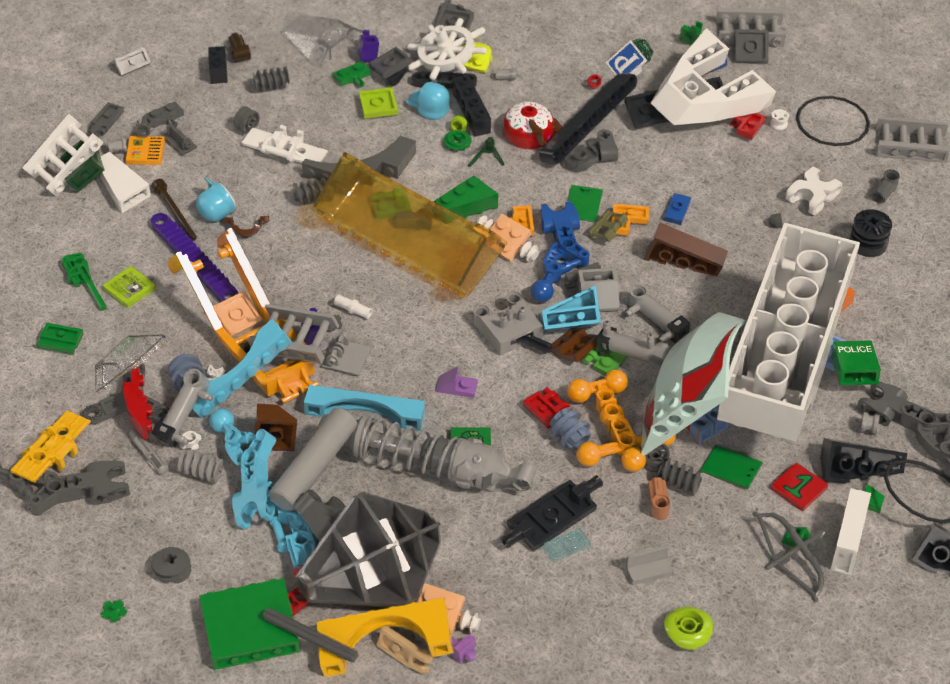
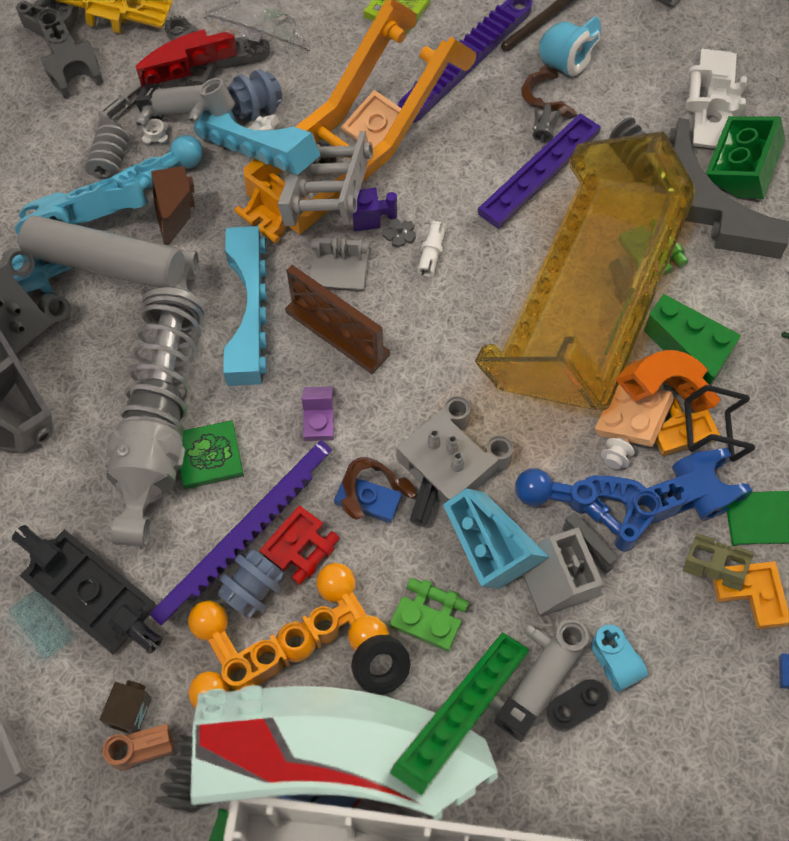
camera: 80 degrees right, 15 degrees up
(246, 119) = (742, 38): dark grey wheel -> none
(273, 230) = (542, 129): none -> dark grey piece
(310, 241) = (537, 171): none -> dark purple plate
(337, 137) = (747, 155): none -> green slope
(395, 365) = (335, 321): none -> reddish brown fence
(495, 211) = (670, 367): none -> orange arch
(513, 190) = (749, 447): none -> black piece
(514, 370) = (350, 504): none -> reddish brown helmet
(525, 370) = (373, 499): none -> blue plate
(535, 427) = (242, 534): none -> dark purple gear
(574, 344) = (435, 560): reddish brown slope -> none
(609, 340) = (428, 644): light grey piece -> none
(633, 501) = (126, 707): none -> dark brown brick
(635, 377) = (393, 677): none -> black tyre
(654, 279) = (620, 660): none -> medium azure piece
(672, 301) = (578, 705): none -> black plate
(681, 321) = (458, 715): none -> green tile
(685, 251) = (701, 705): reddish brown wedge -> none

